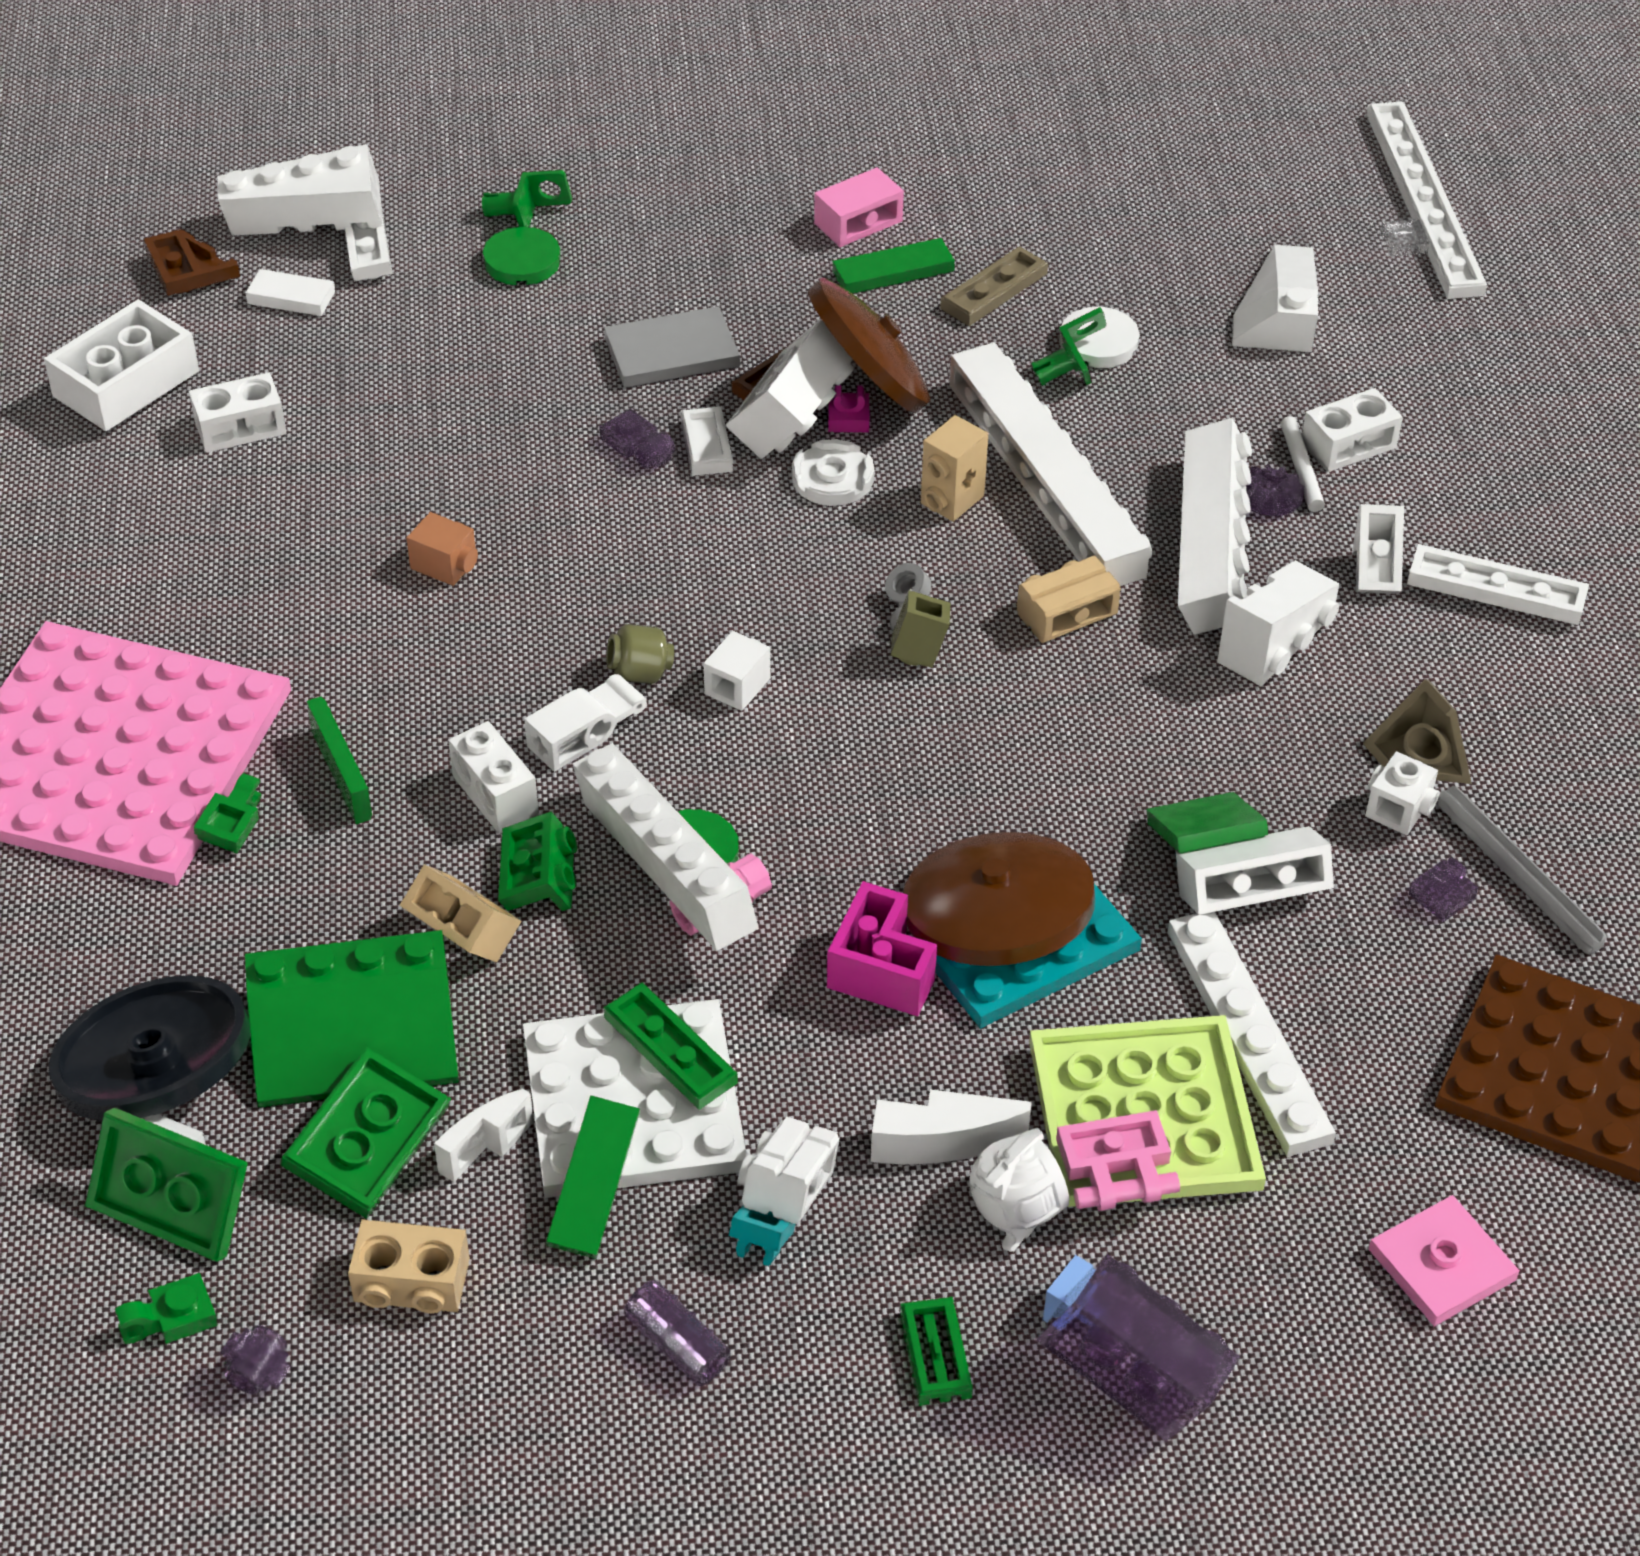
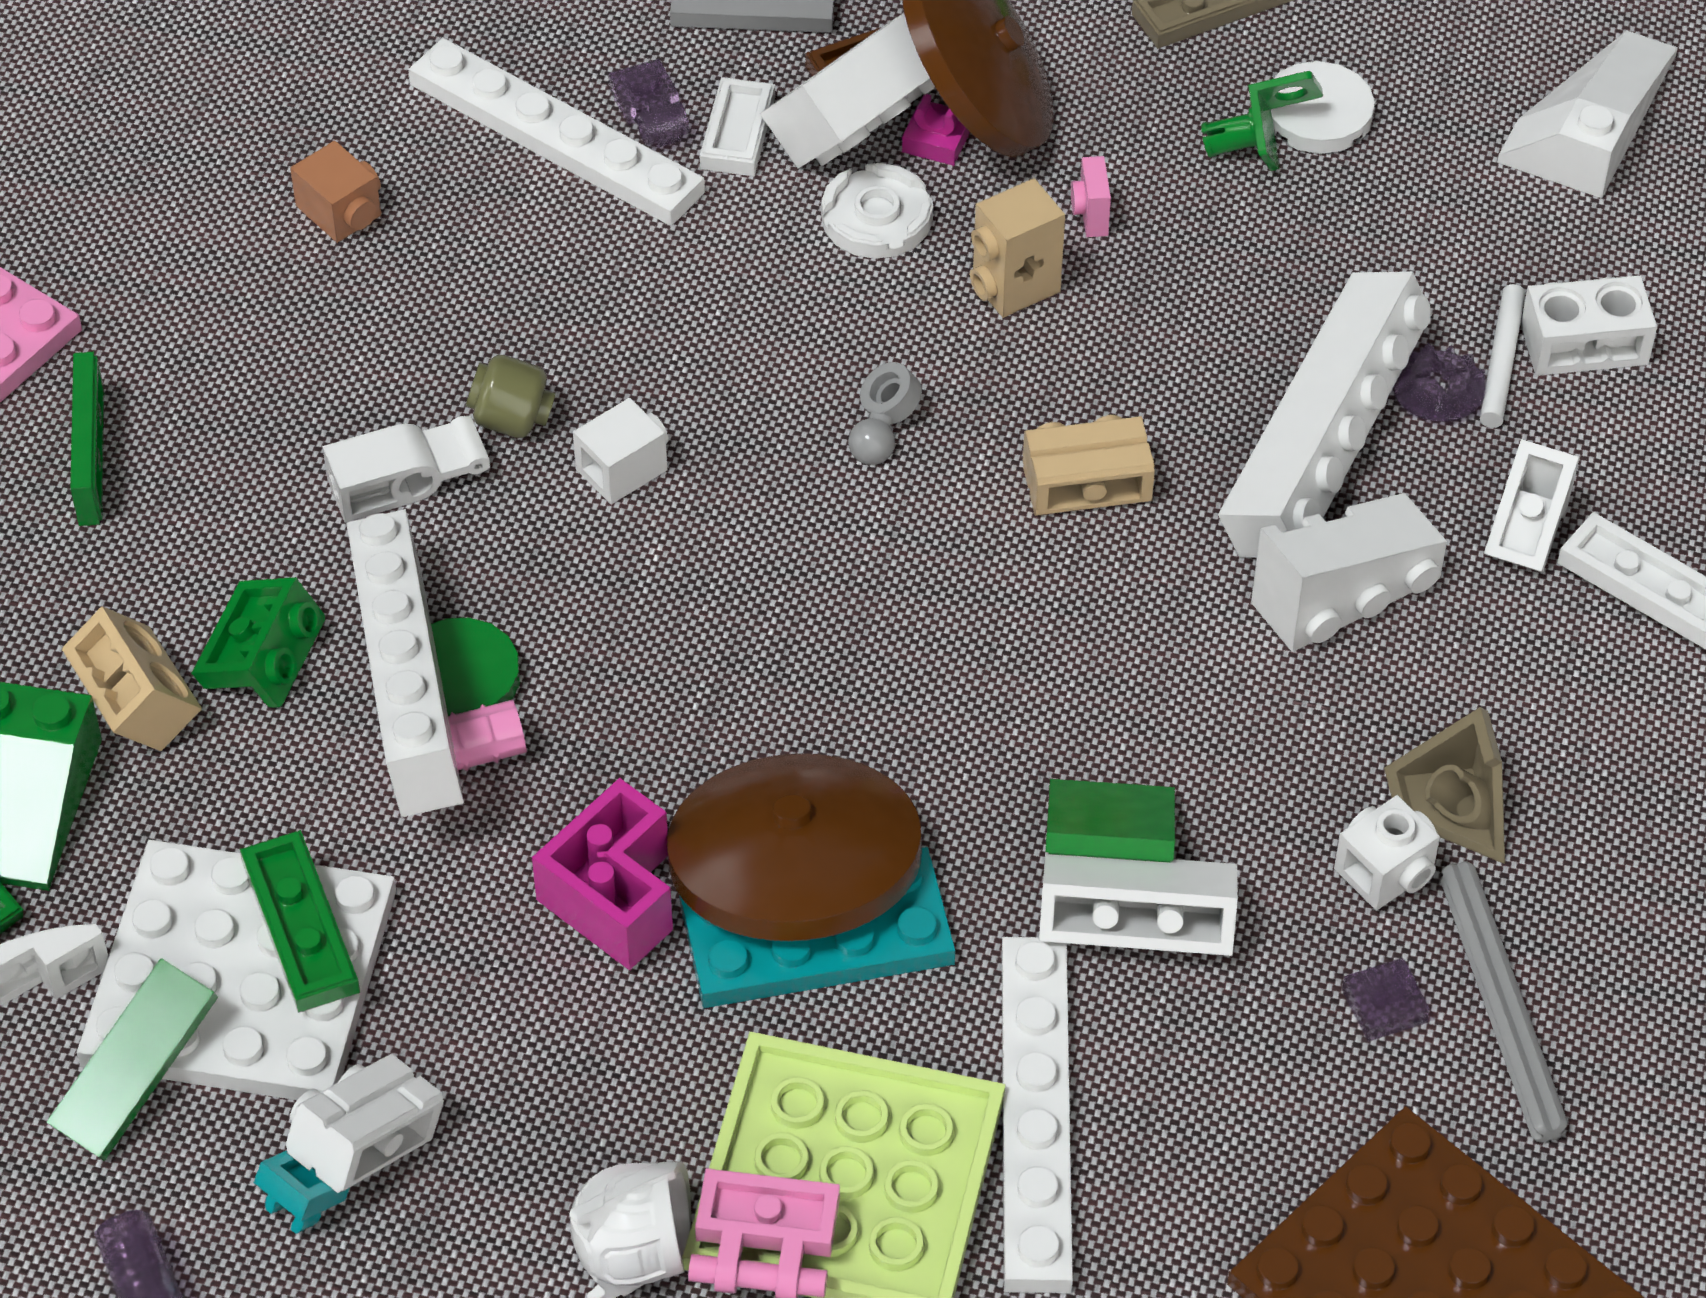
camera: 20 degrees right, 5 degrees up
(493, 776) = (256, 511): white brick -> none
(578, 473) = (557, 131): none -> white plate
(920, 629) = (870, 457): olive brick -> none
(945, 1130) = (584, 1126): white slope -> none
(982, 416) = (1092, 196): none -> bright pink plate
(1048, 463) = (1156, 276): white brick -> none

